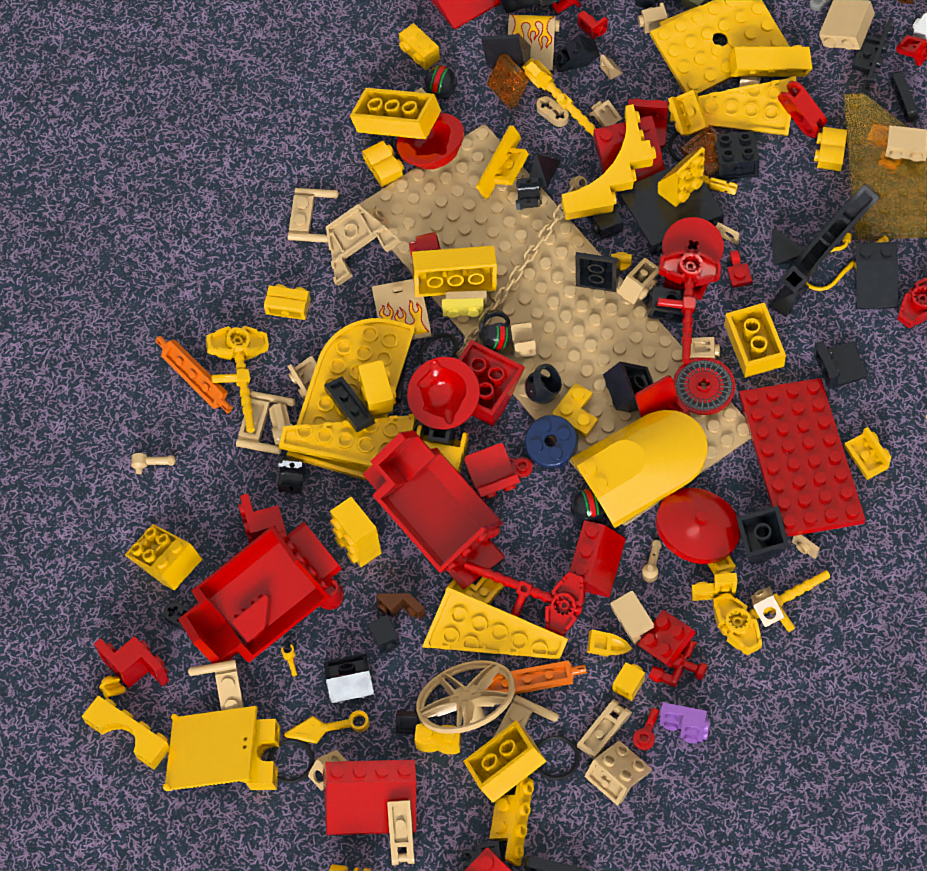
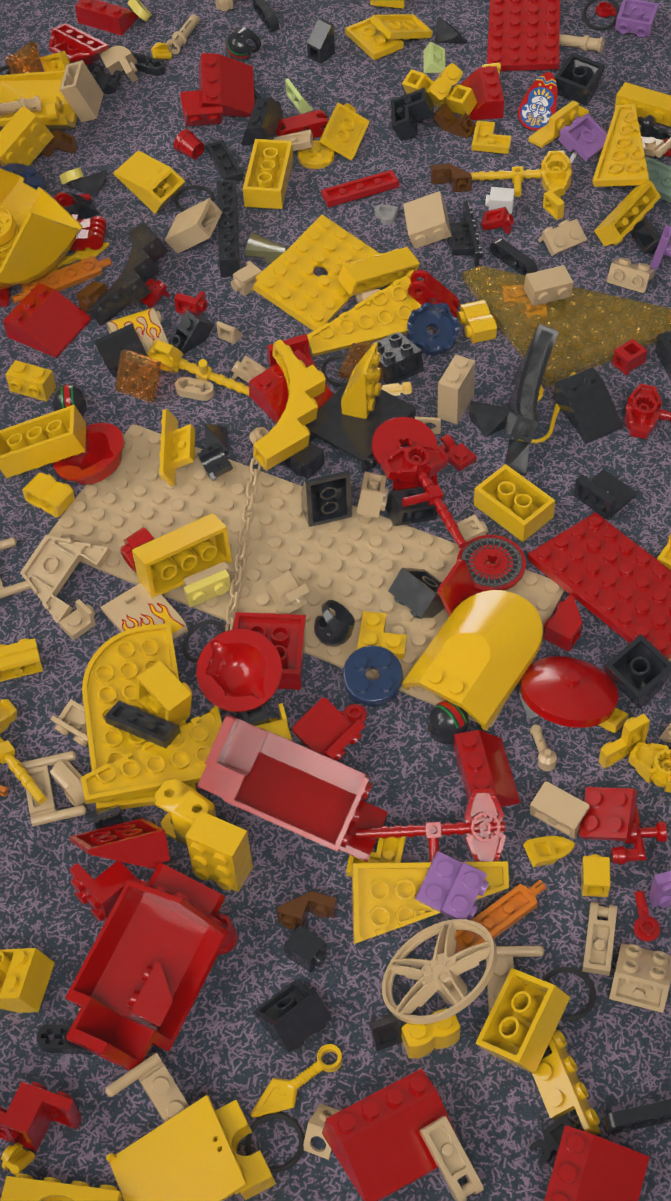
camera: 30 degrees left, 10 degrees down
(288, 493) = (129, 842): none -> red slope
(290, 658) = (211, 1025): yellow hand -> none
(347, 485) = (181, 807): none -> yellow piece
(351, 289) = (78, 621): none -> tan bracket
(497, 335) = (259, 598): black helmet -> none
(513, 639) = (452, 887): none -> medium lavender plate
(687, 113) = (330, 337): yellow bracket -> none
(731, 468) = (565, 625): none -> red slope
(766, 211) = (456, 389): none -> tan brick
(793, 129) = (436, 316): none -> dark blue plate

